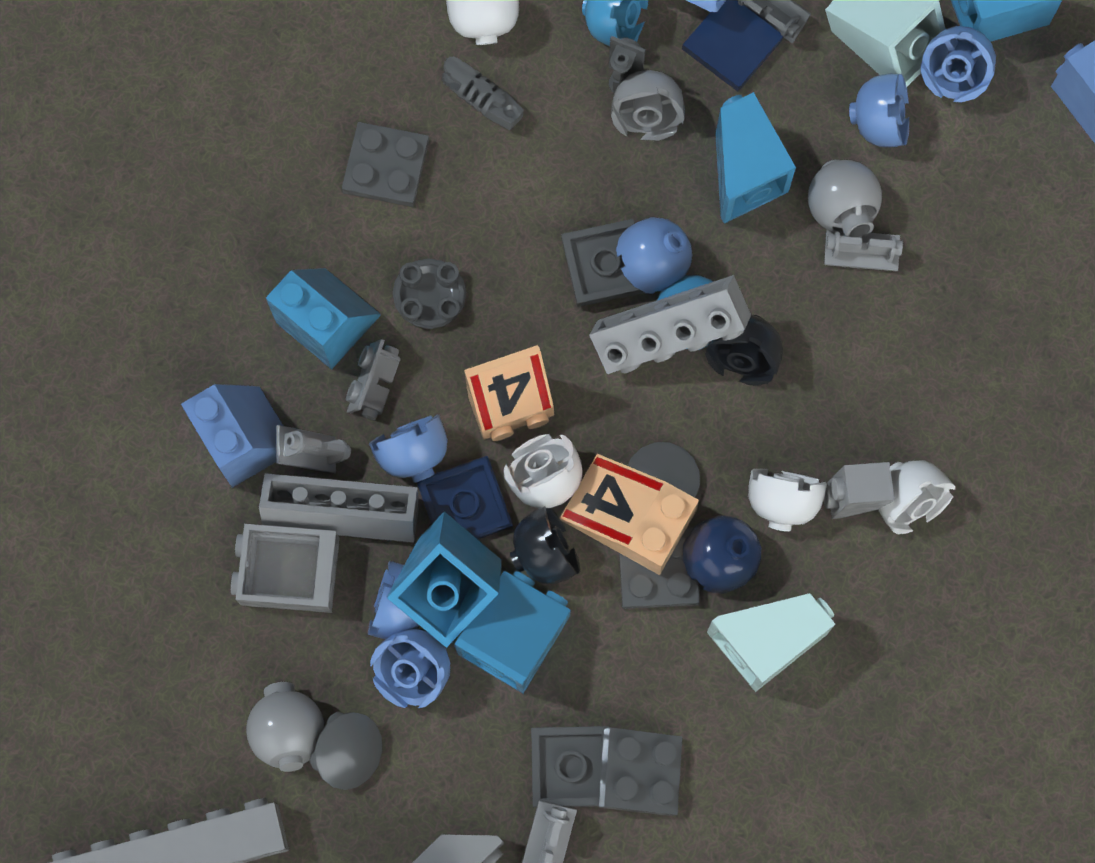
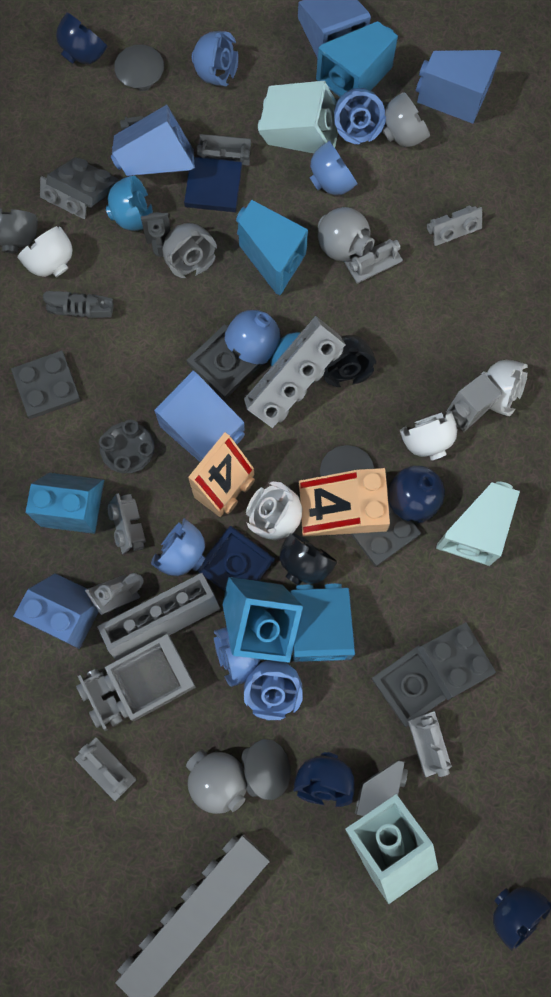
camera: 35 degrees left, 0 degrees up
(175, 635) = (105, 769): none -> light grey hinge
(217, 541) = (93, 689): none -> light grey hinge
(403, 803) = (325, 779): none -> dark blue cylinder
(530, 309) = (198, 417): none -> medium blue slope
(1006, 269) = (461, 223): none -> light grey hinge
(1010, 104) = (404, 123): none -> light grey cylinder

